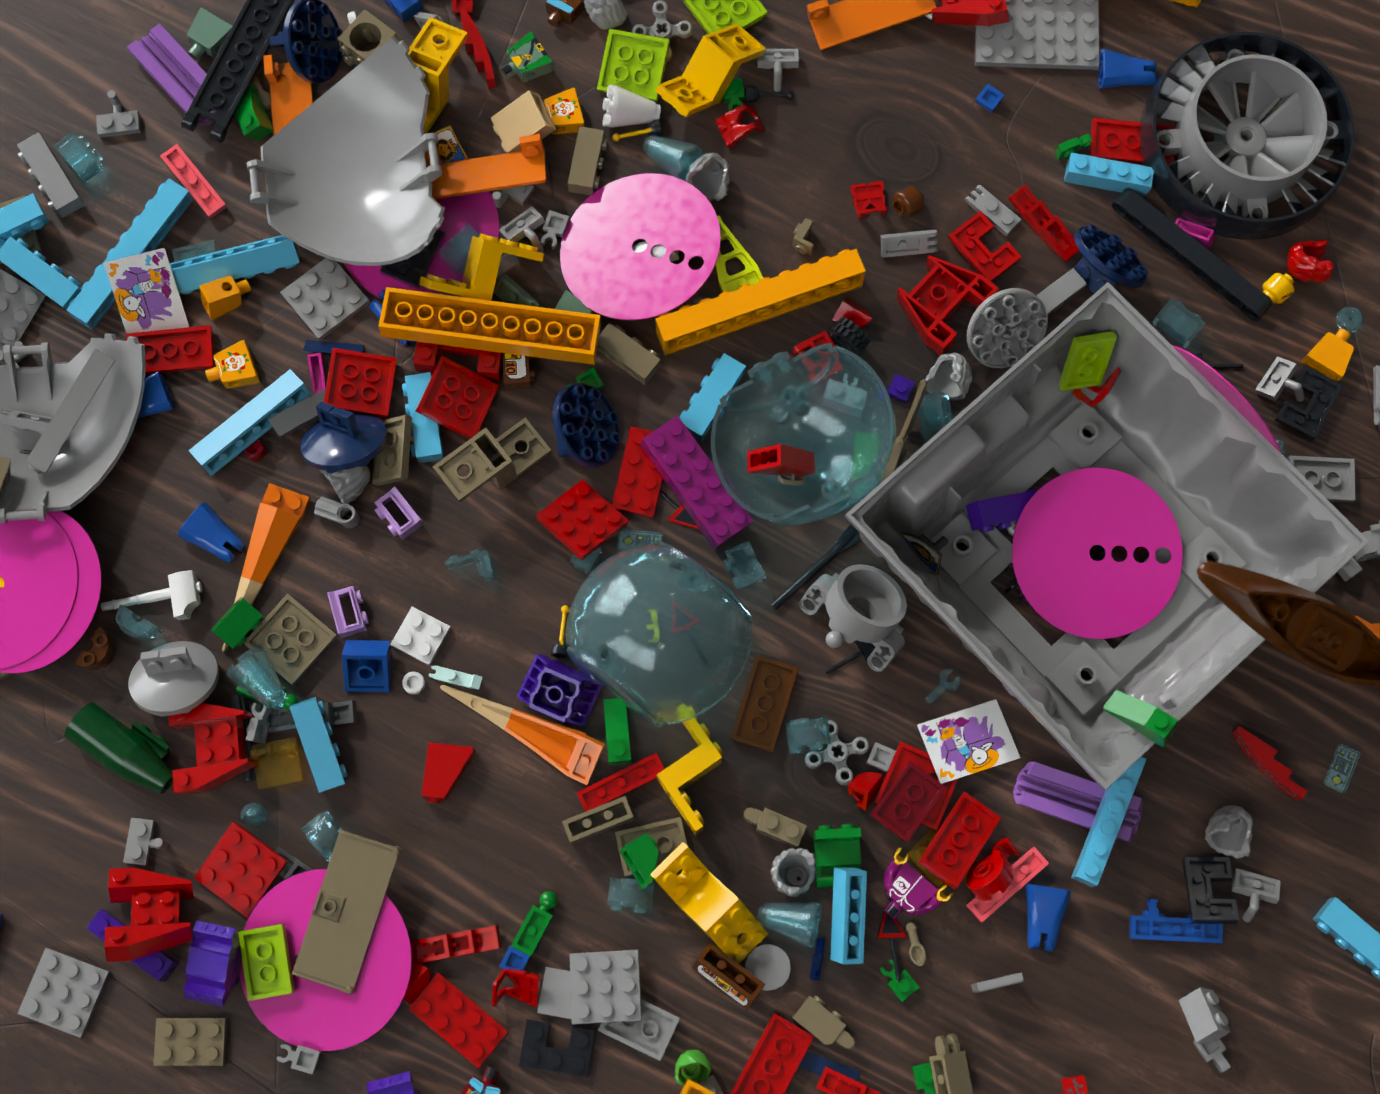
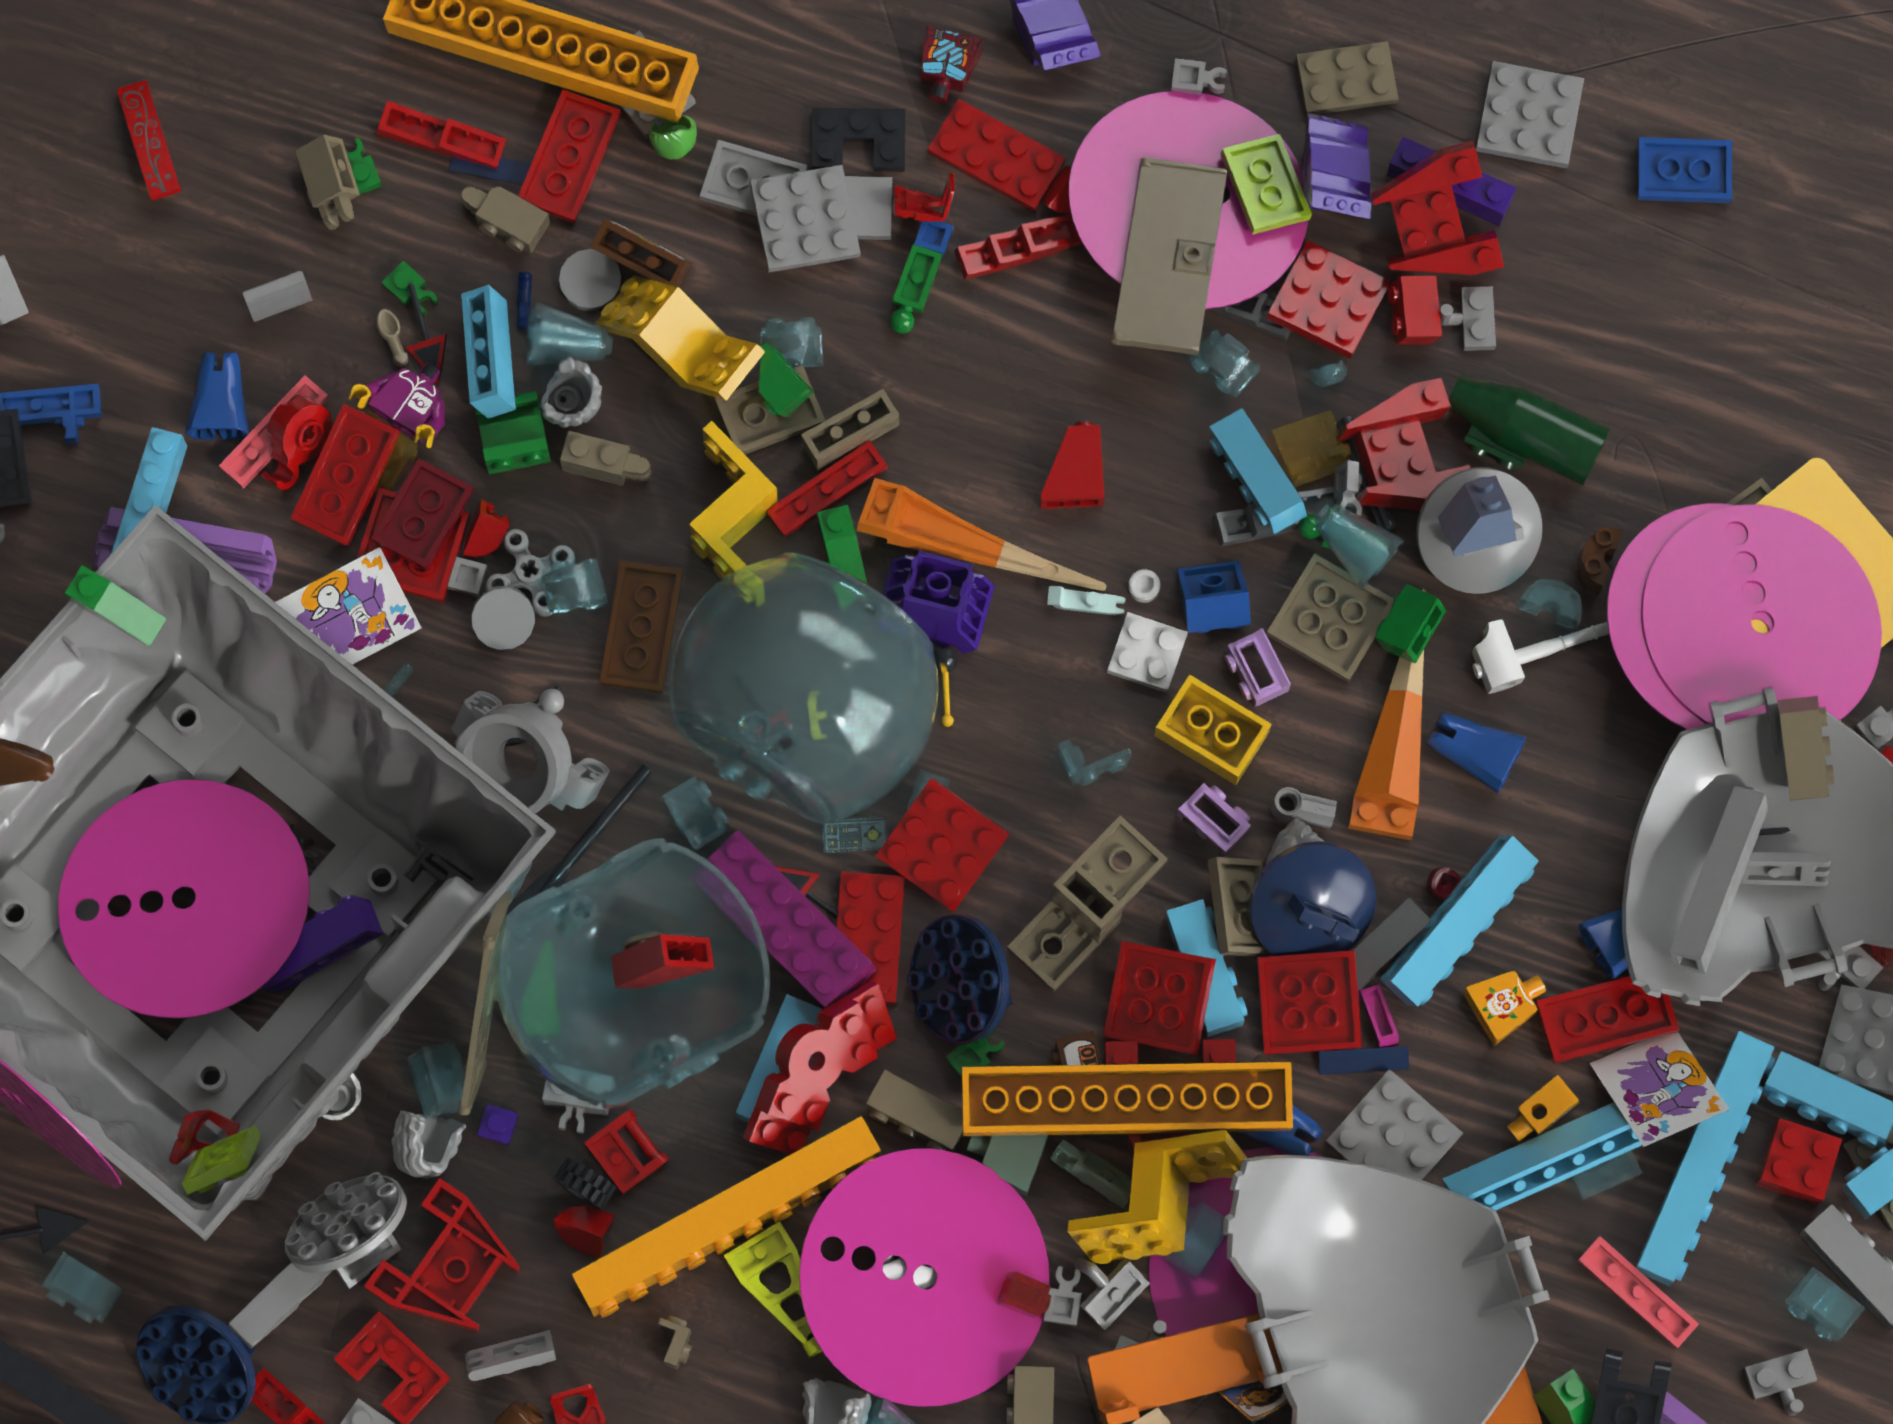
camera: 170 degrees right, 0 degrees up
(71, 241) = (1798, 1162): none -> red brick
(169, 667) = (1478, 517): none -> sand blue slope
(181, 850) = (1415, 310): none -> red brick
(386, 570) = (1212, 729): none -> yellow brick
(579, 228) = (1024, 1295): none -> clear red brick
(689, 385) = (798, 1095): none -> red plate
(859, 721) = (503, 617): none -> light grey tile

